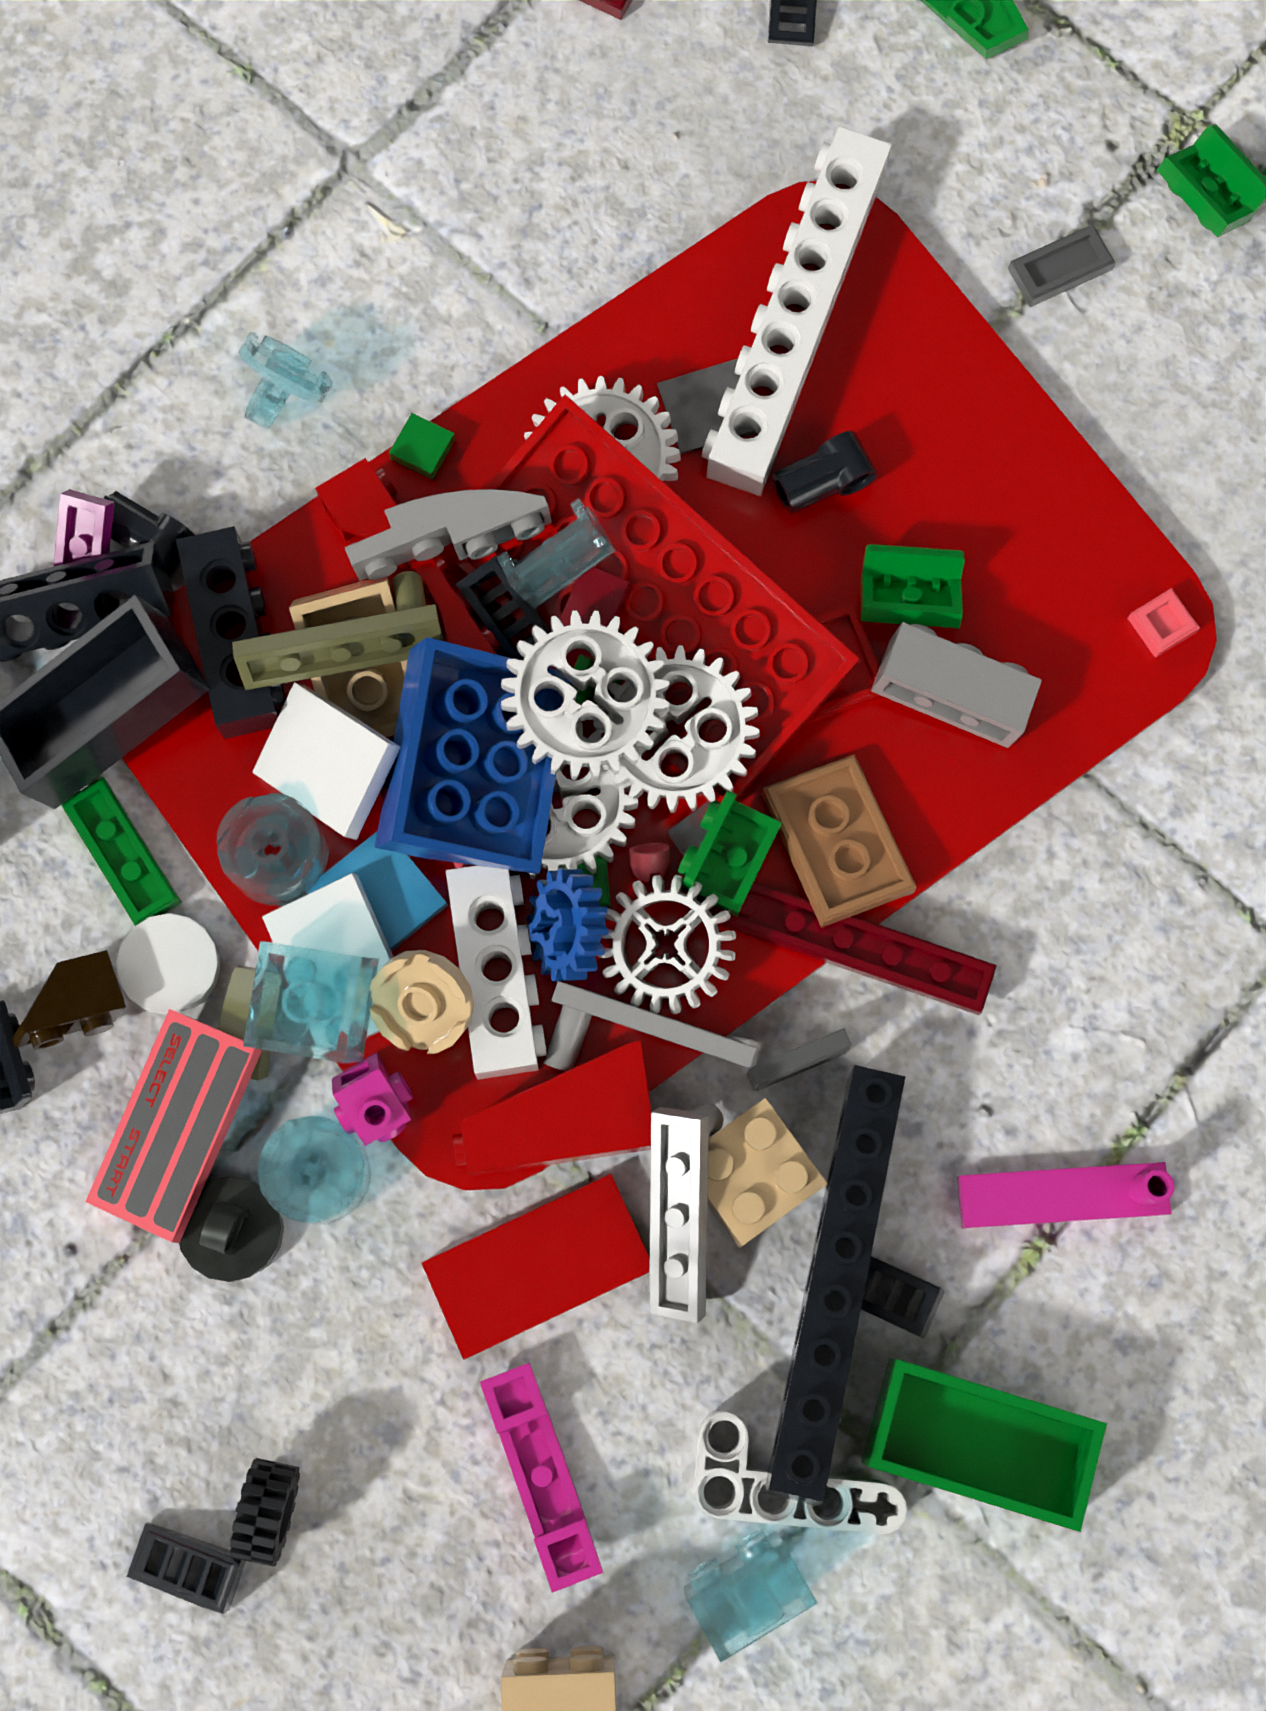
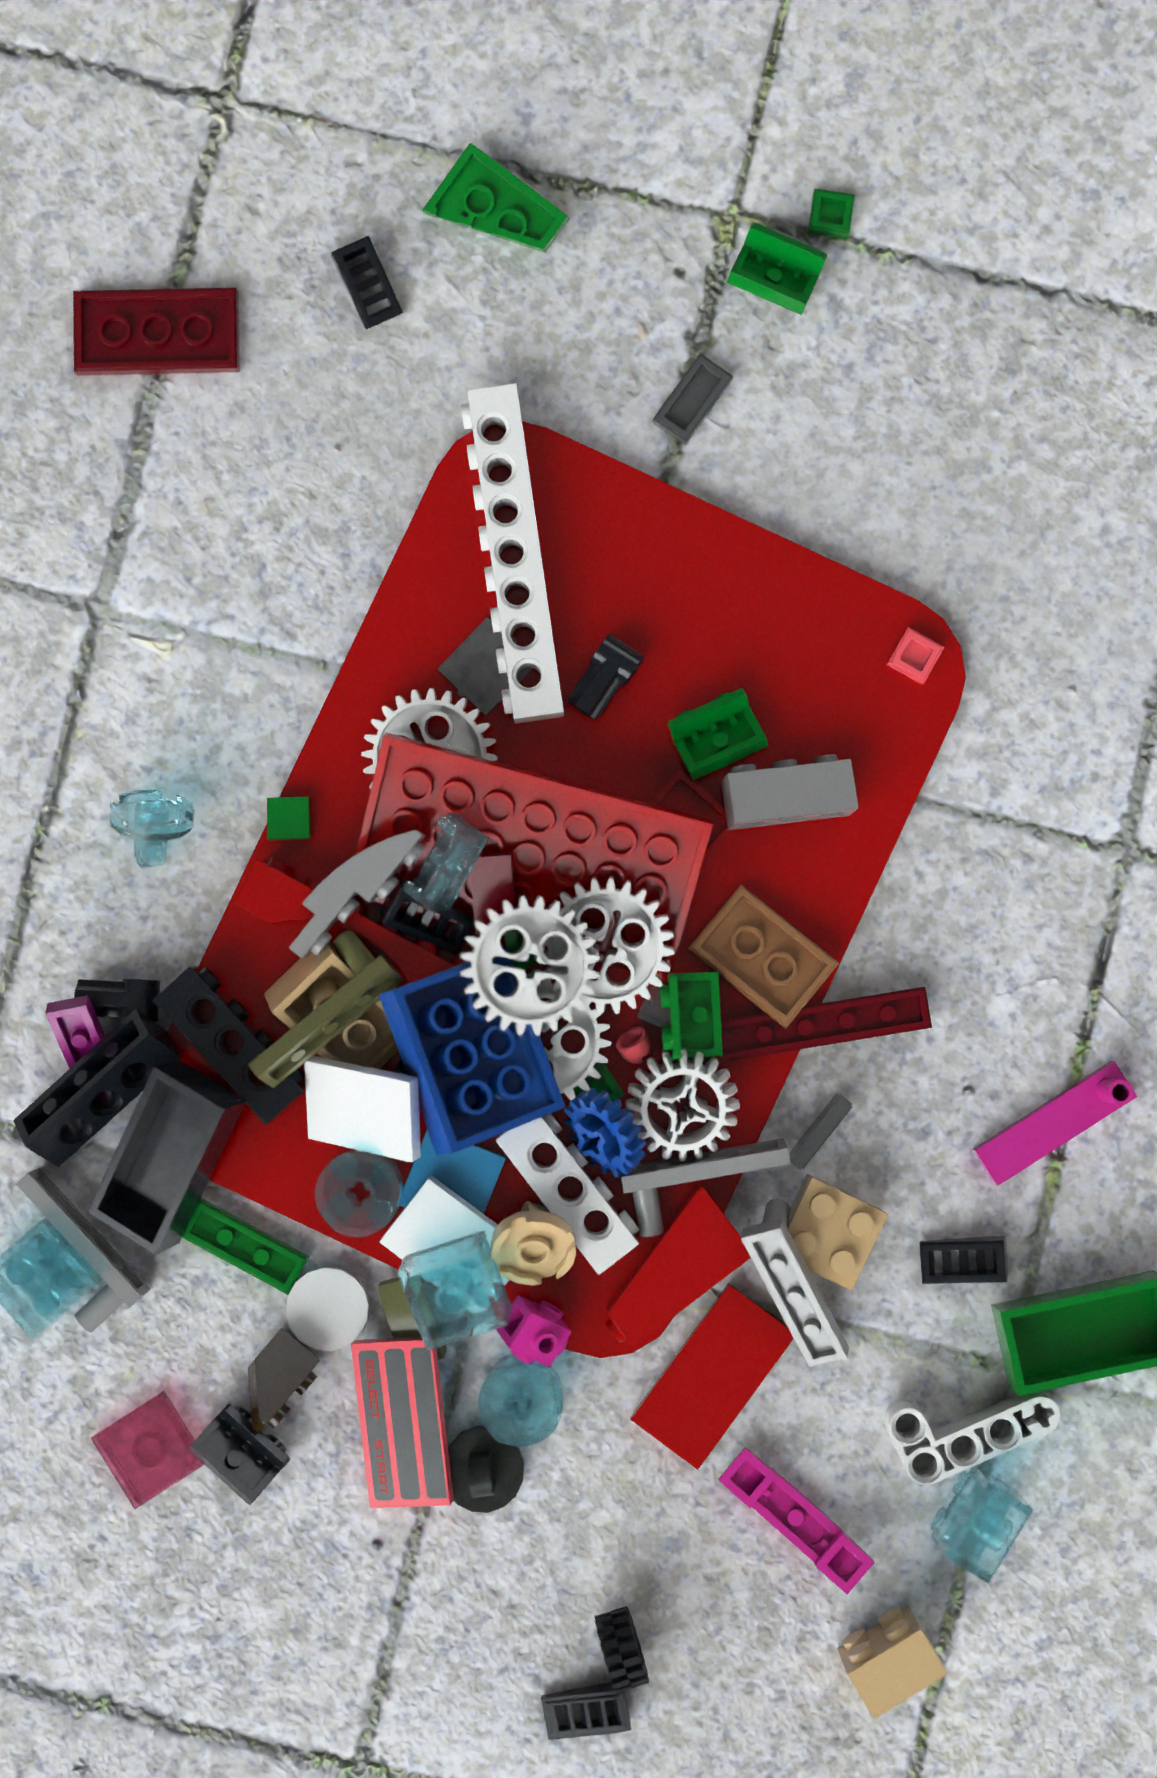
camera: 25 degrees left, 10 degrees up
(835, 1287) = (930, 1282): black brick -> none

